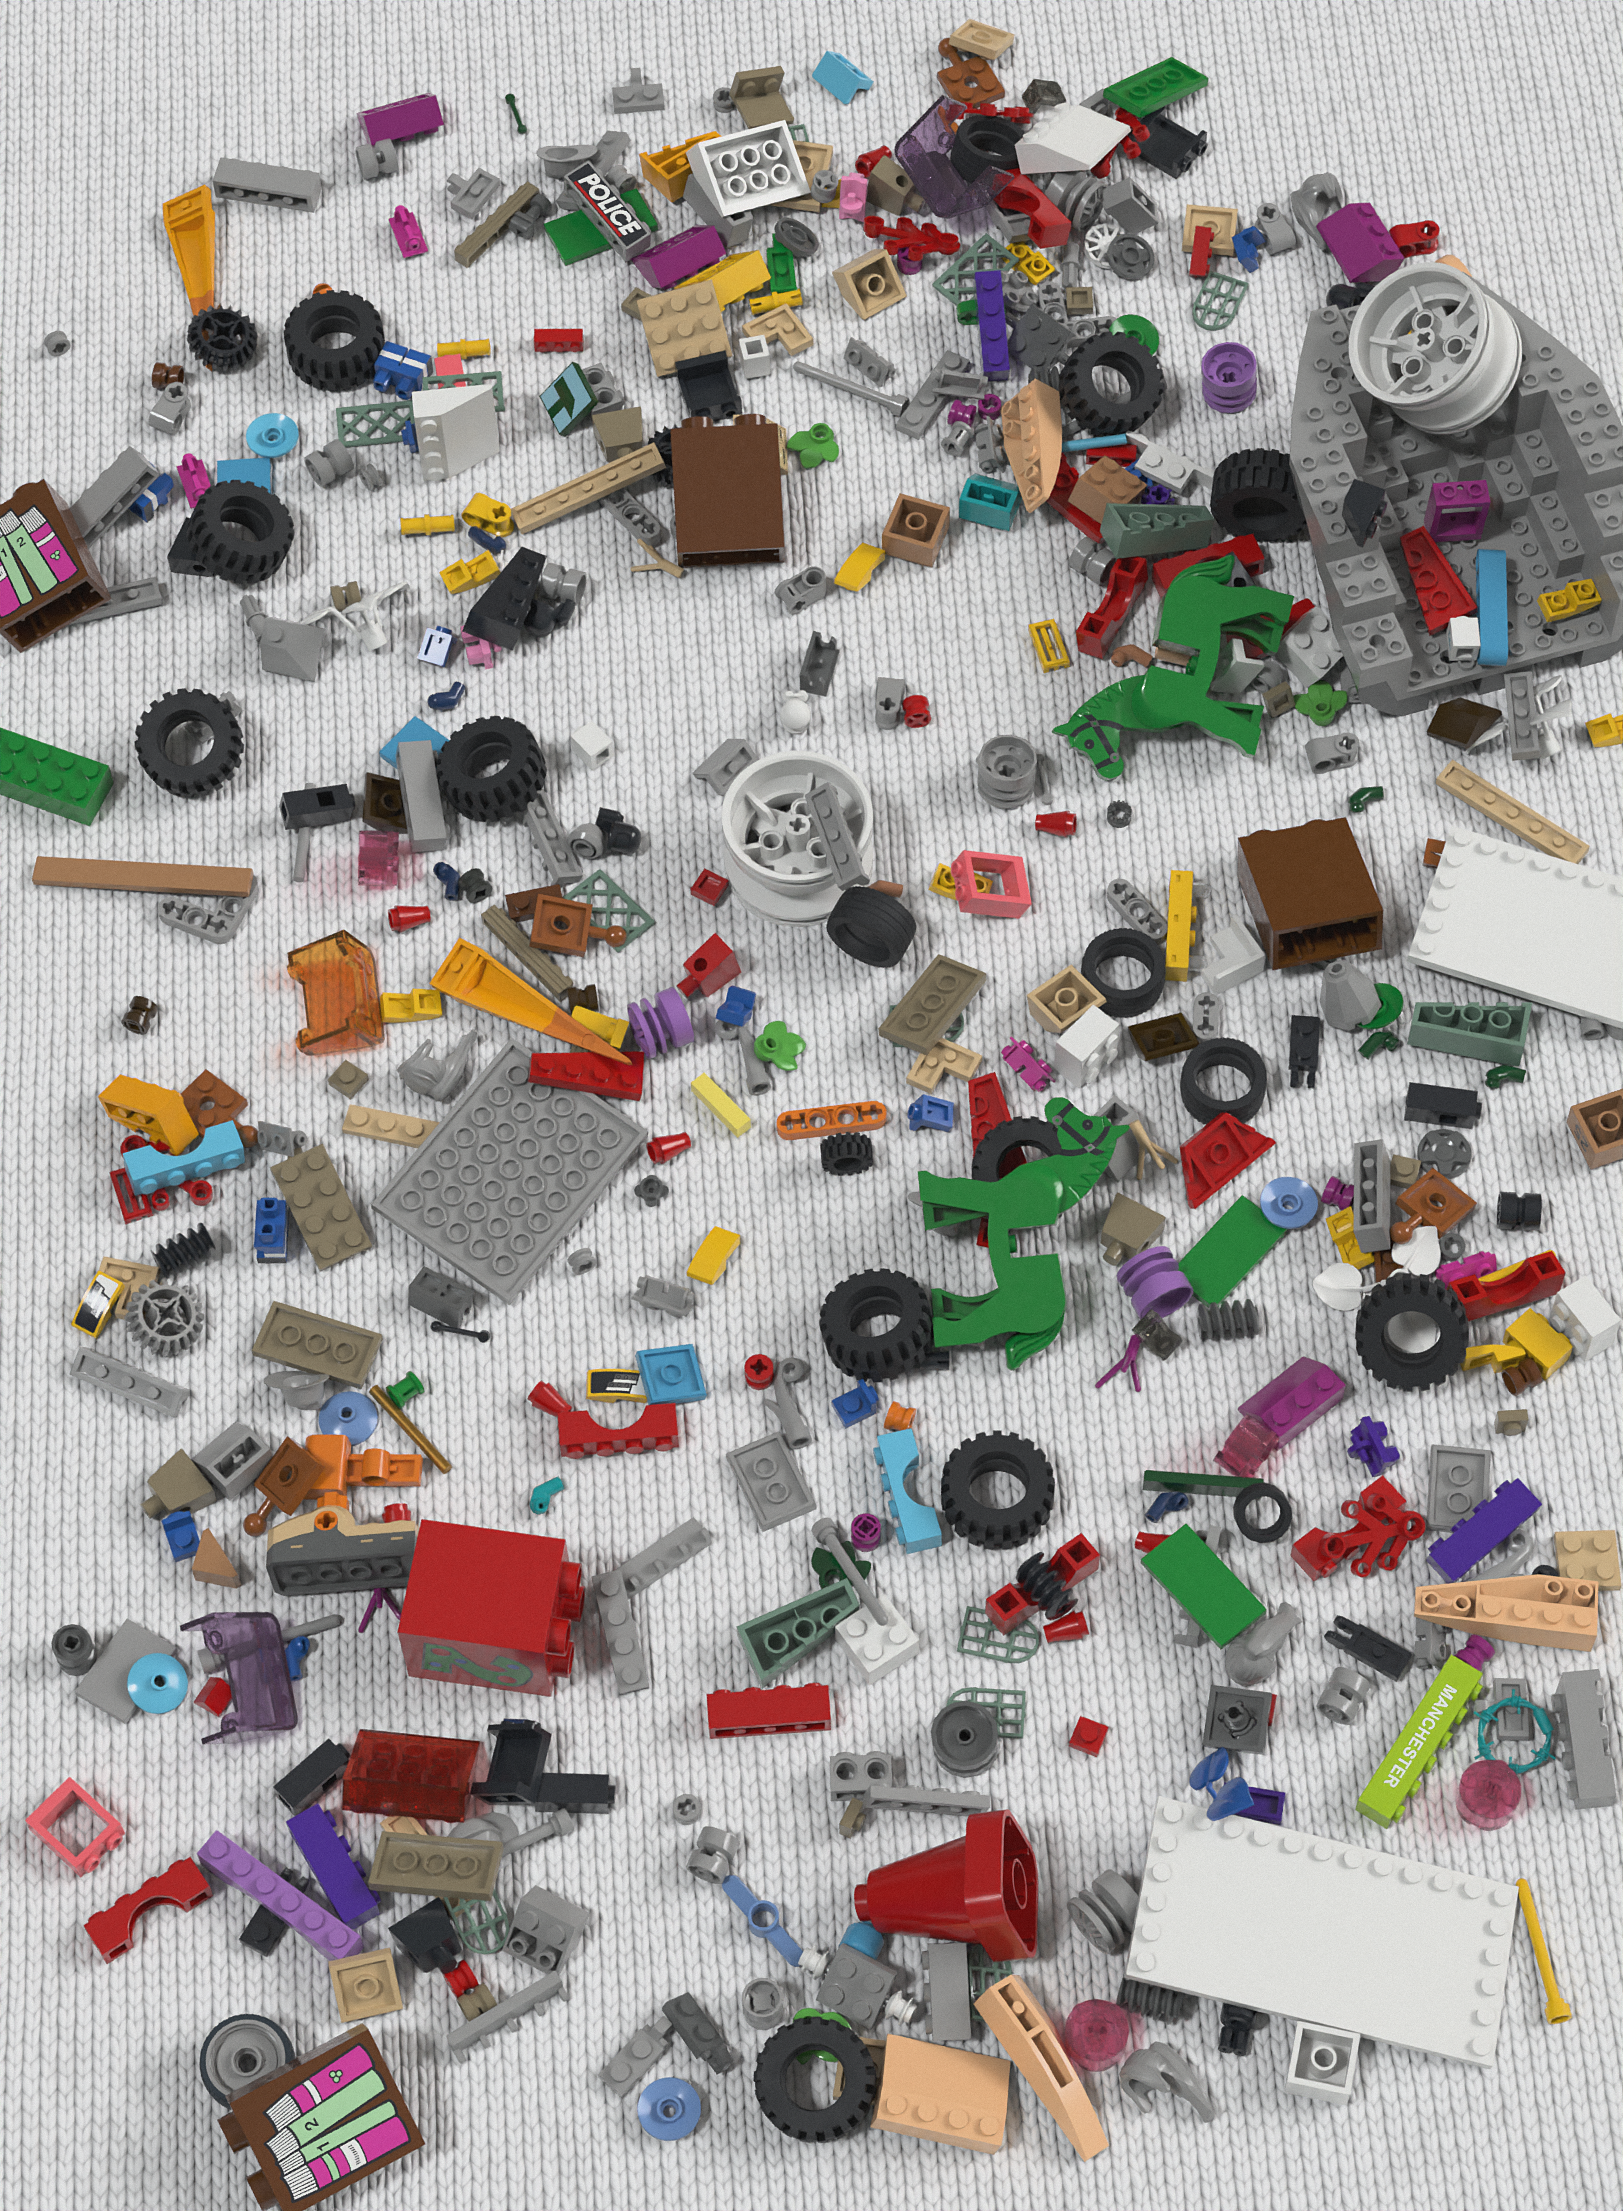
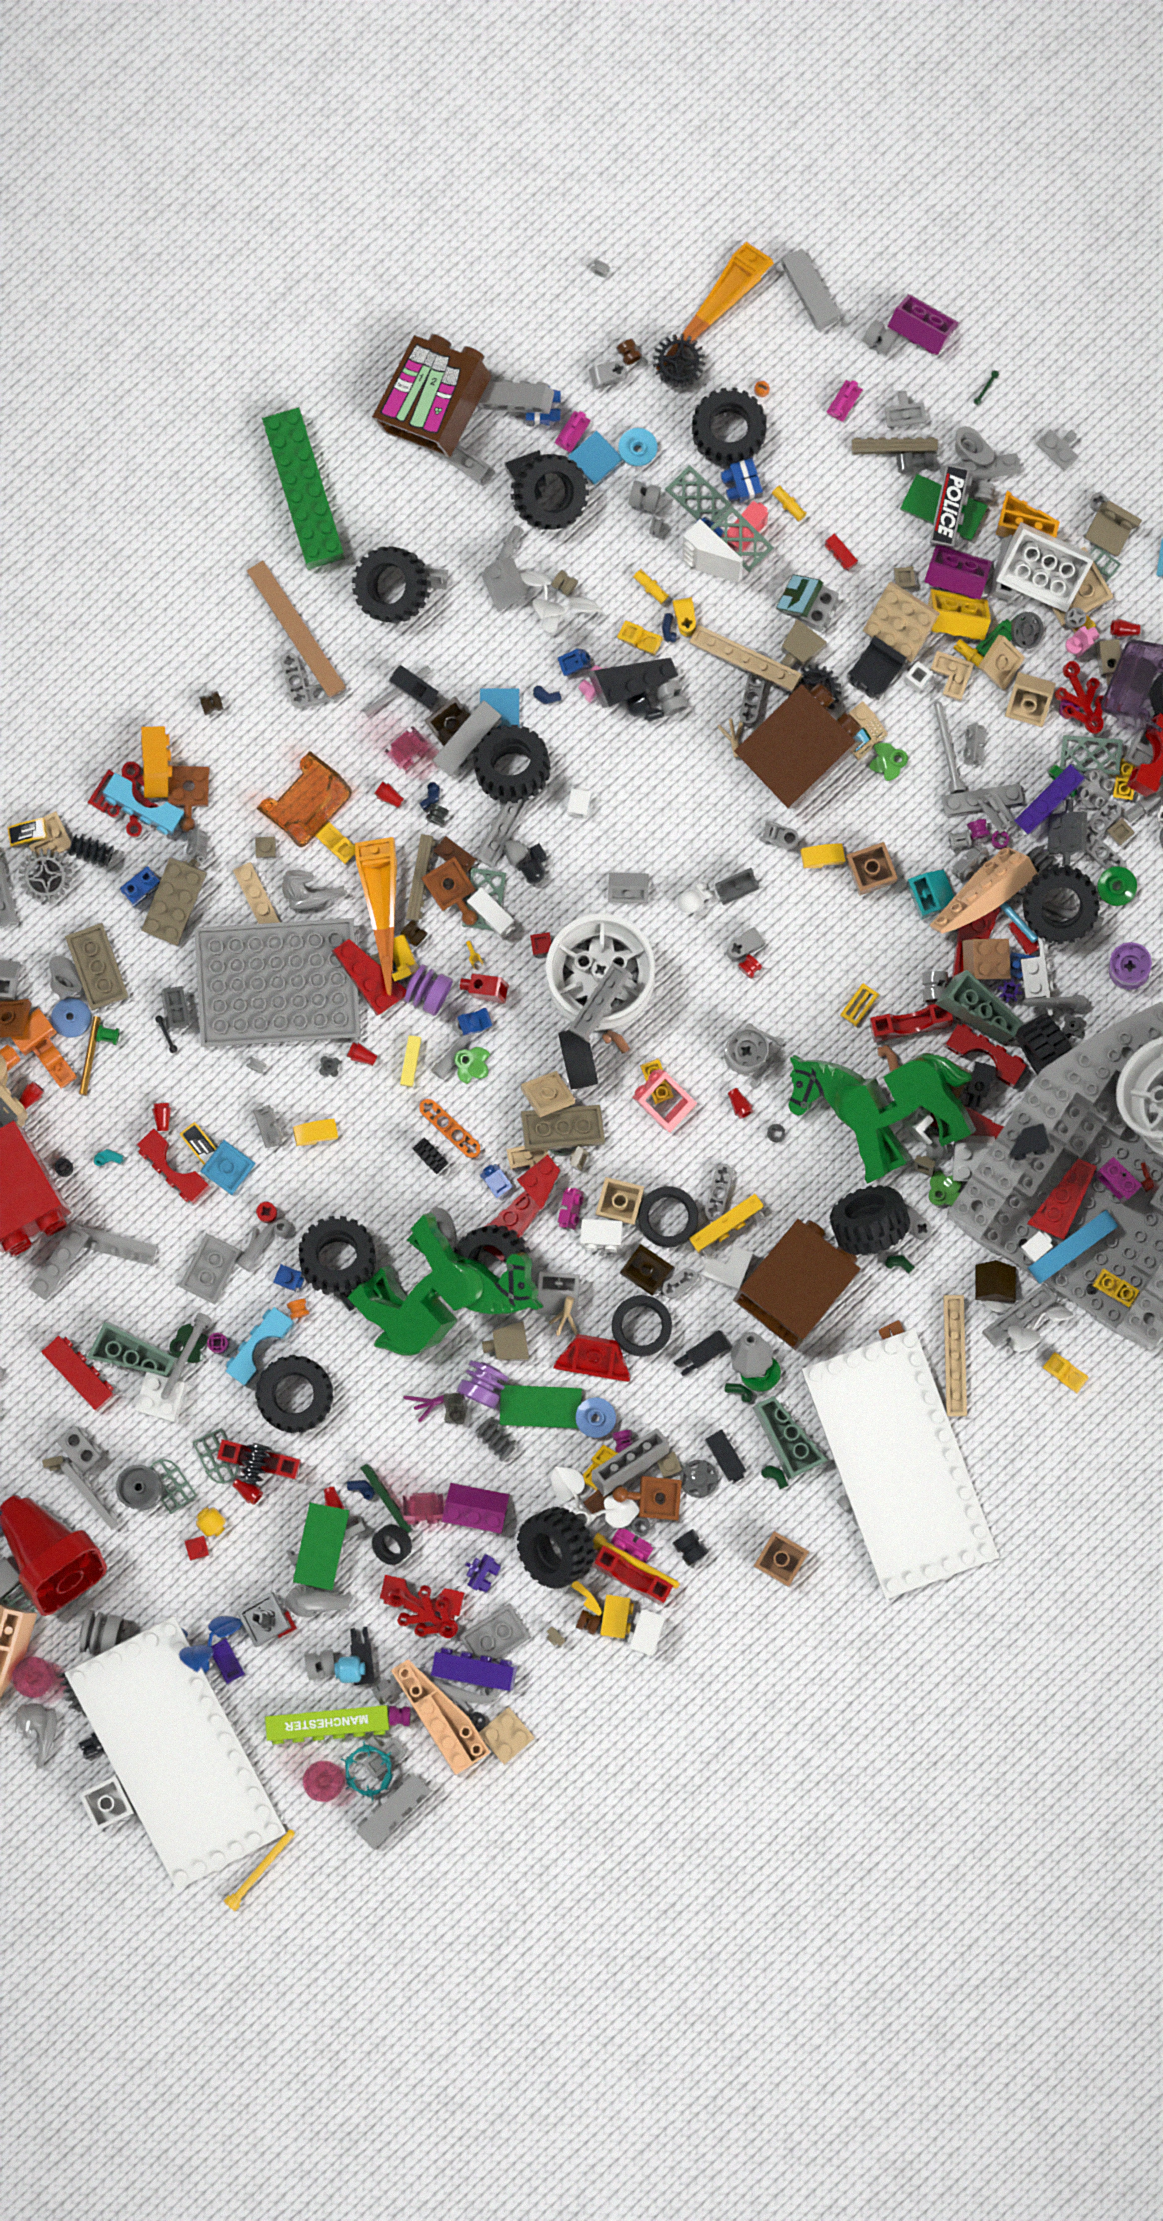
camera: 55 degrees right, 20 degrees up
(632, 906) = (491, 913): none -> white brick
(664, 960) = (474, 956): none -> yellow hand
(808, 277) = (1001, 662): none -> tan plate
(882, 991) = (547, 1094): none -> tan plate
(972, 1066) = (540, 1180): none -> red wing
(978, 1015) = (578, 1158): none -> plate
(1070, 1694) = (210, 1521): none -> yellow head
(1210, 462) = (1075, 1002): none -> light grey plant
(1299, 772) = (870, 1220): none -> black tyre
(1377, 1662) = (349, 1669): none -> medium azure head

